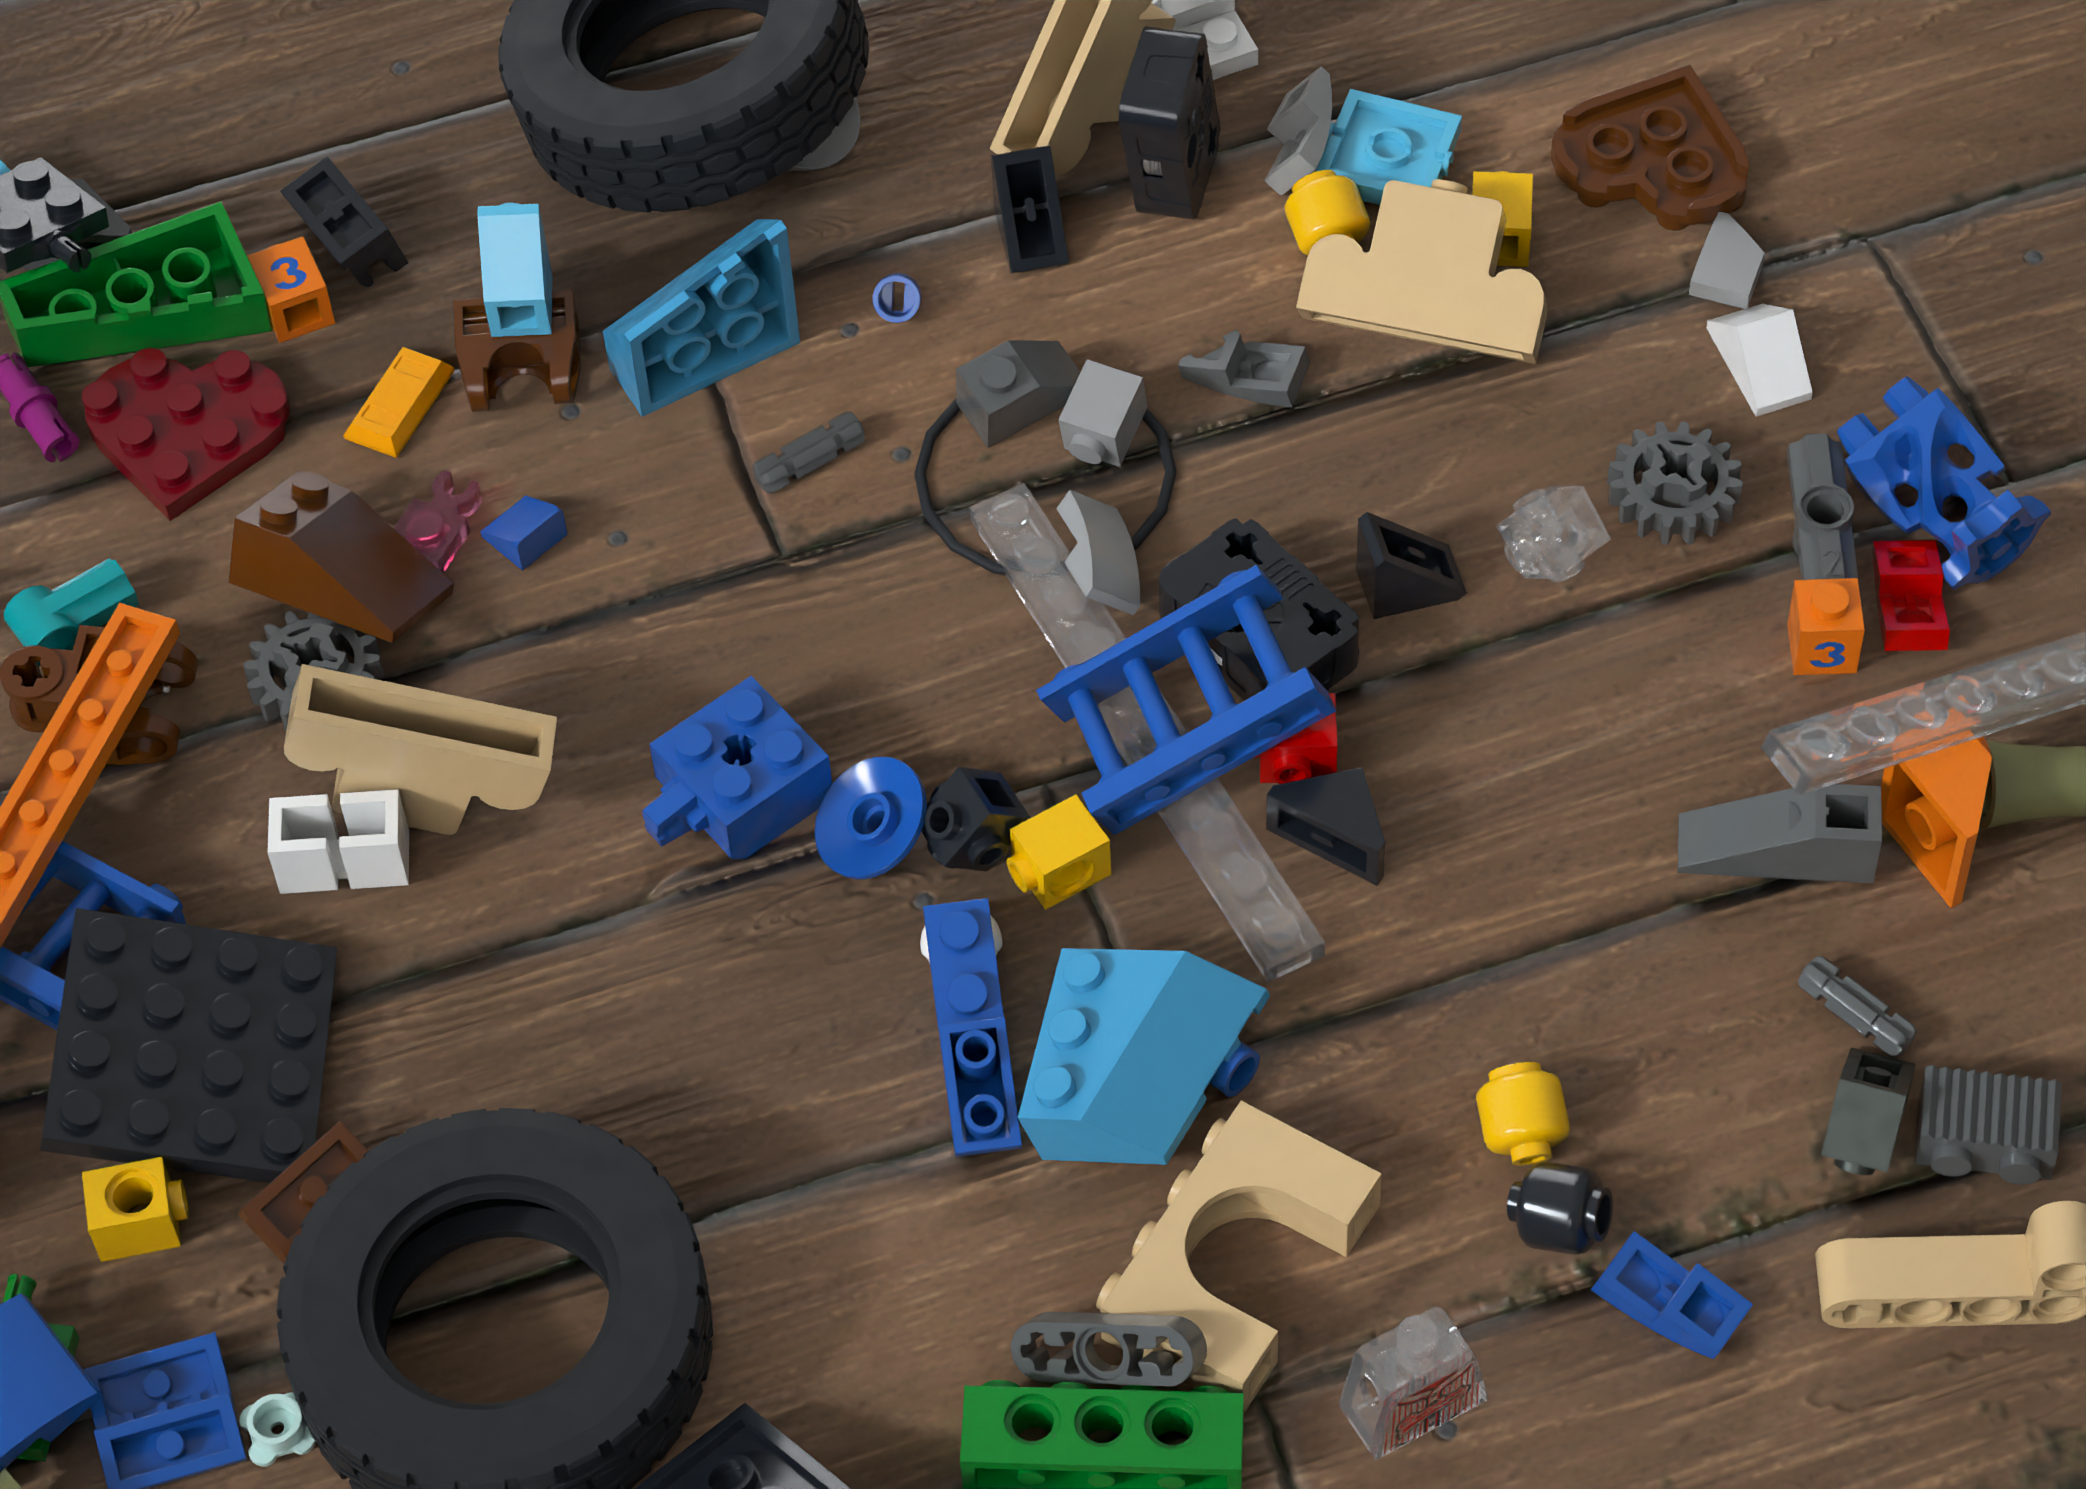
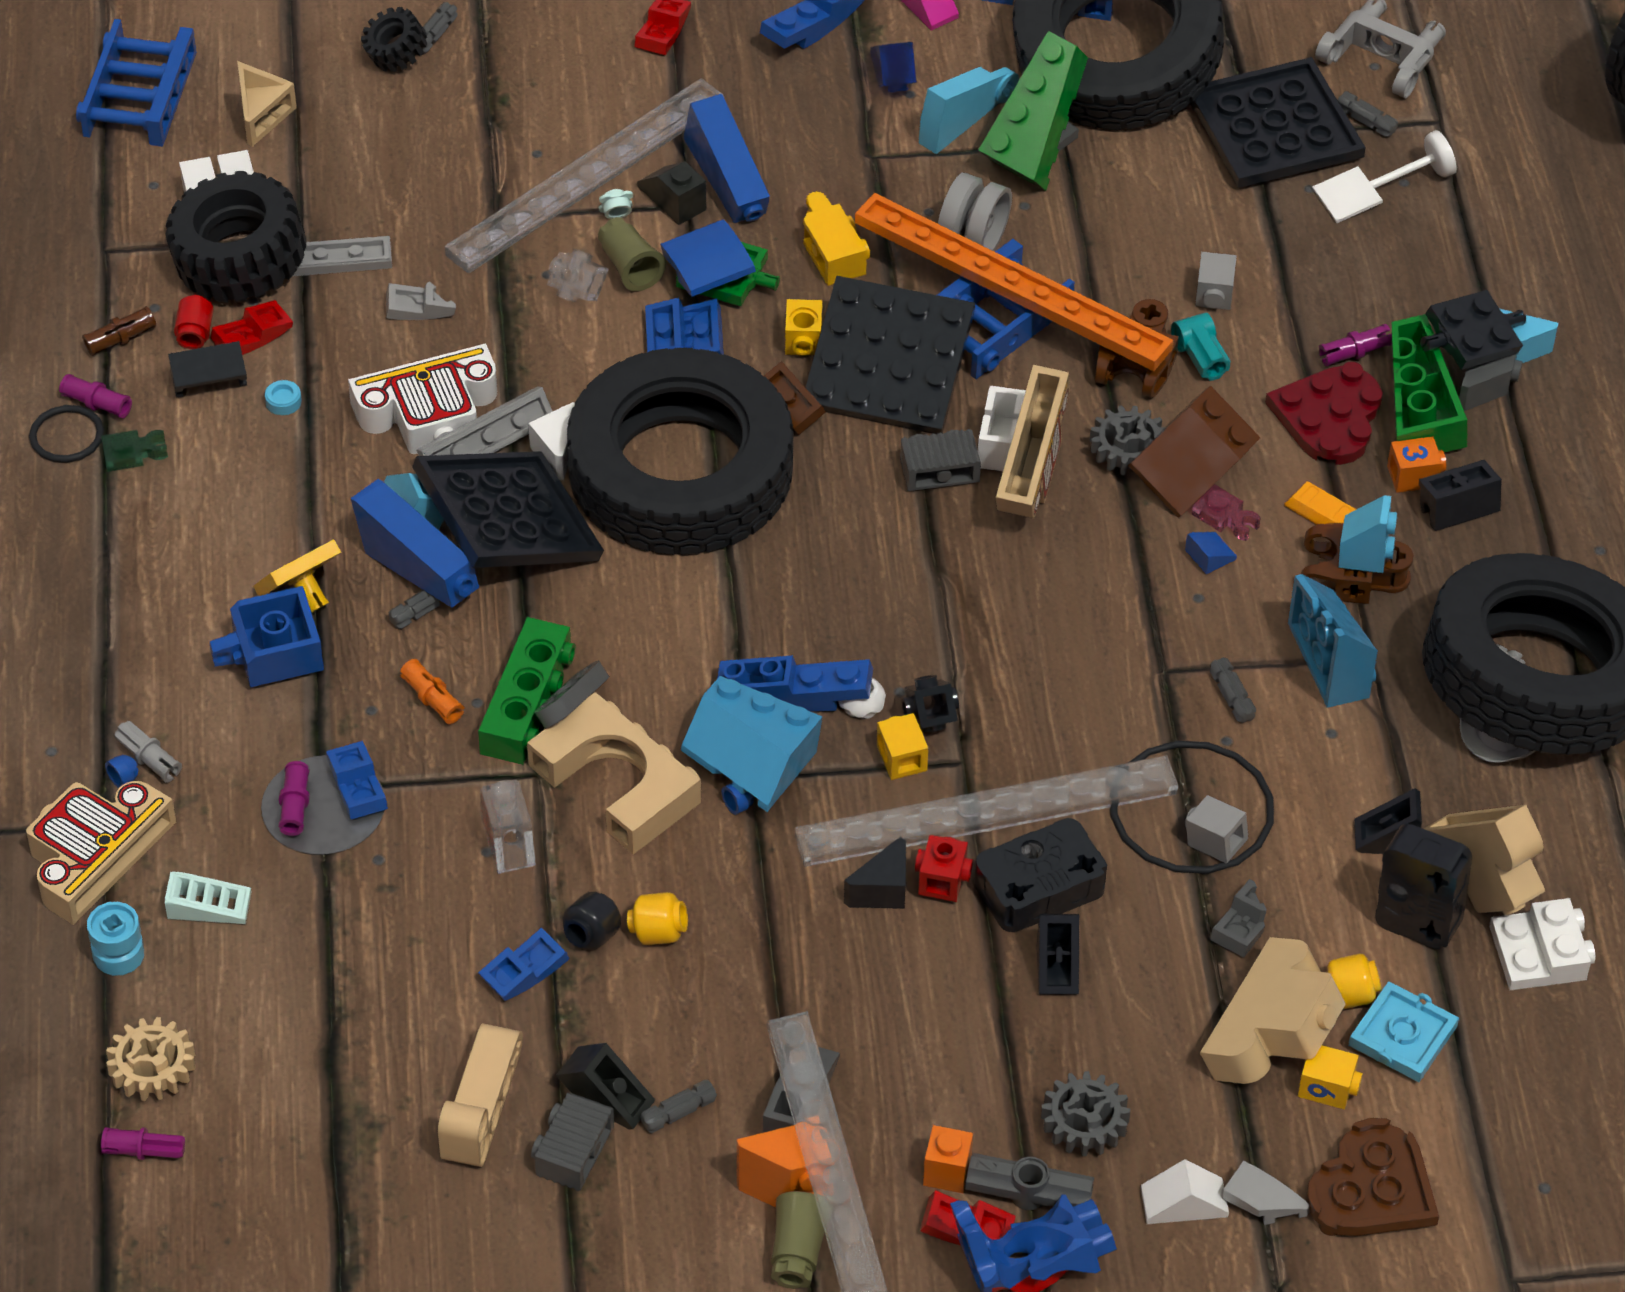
camera: 100 degrees right, 5 degrees down
(417, 931) = (940, 460): none -> dark grey brick
(736, 773) = (999, 609): blue hinge -> none
(870, 818) = (950, 663): blue dish -> none
(884, 298) = (1341, 751): hinge -> none
(1014, 387) = (1249, 789): dark grey slope -> none
(1104, 555) = (1110, 806): light grey slope -> none
(1214, 748) = (936, 812): blue fence -> none
(1303, 128) = (1438, 985): light grey slope -> none
(1552, 533) = (1058, 1032): clear brick -> none

